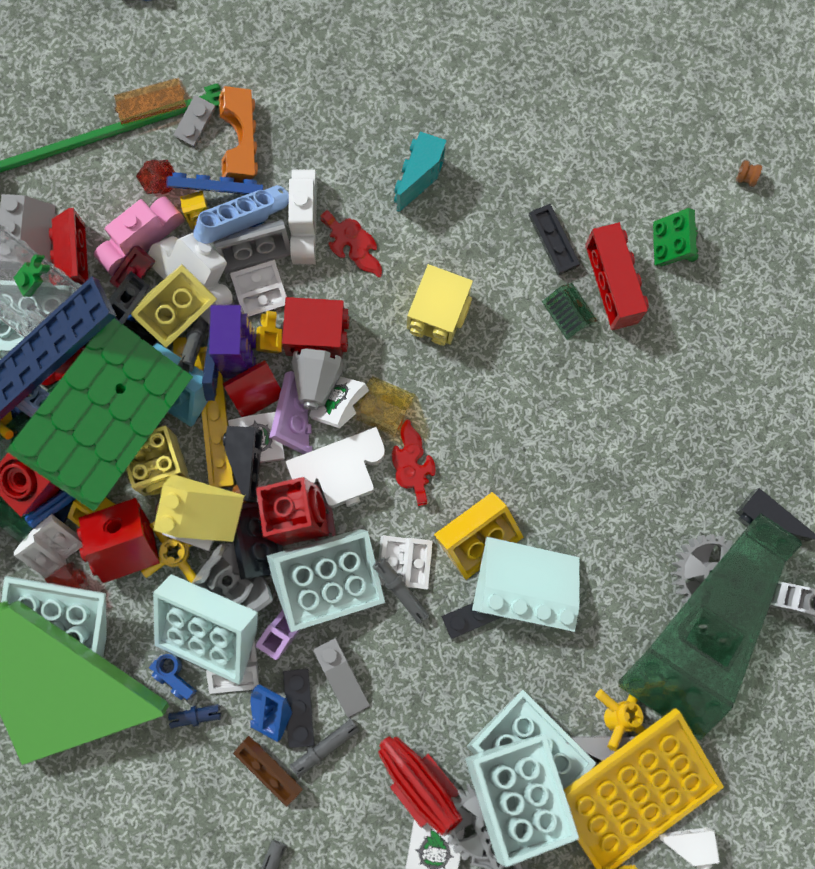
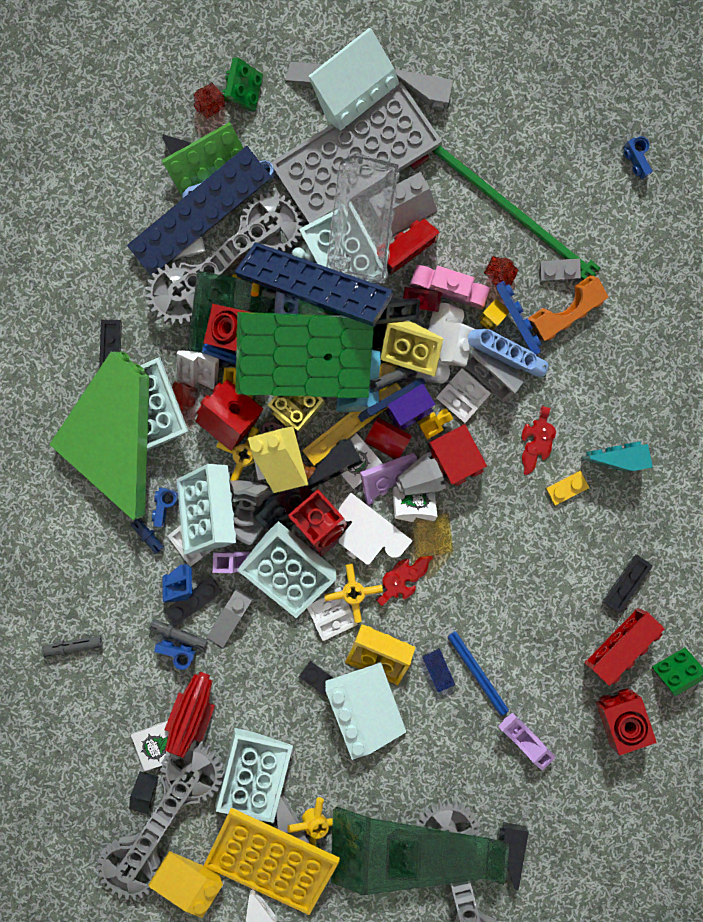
camera: 65 degrees right, 10 degrees up
(29, 275) = (370, 236): green plate -> none
(149, 101) = (556, 227): clear orange piece -> none
(267, 771) = (140, 606): reddish brown plate -> none
(303, 215) = (536, 394): white brick -> none
(331, 768) = (167, 648): none -> blue plate
(395, 582) = (312, 618): dark grey pin -> none
(400, 514) = (347, 589): none -> yellow bar
(419, 242) = (567, 488): none -> yellow plate
(439, 305) = (526, 533): light yellow brick -> none
(521, 799) = (218, 789): light aqua slope -> none
(532, 483) = (438, 670): none -> clear blue plate
(559, 444) = (478, 673): none -> blue axle
(569, 310) = (580, 625): clear green panel -> none
(660, 434) = (527, 741): none -> lavender arch
(696, 320) = (625, 721): none -> red brick

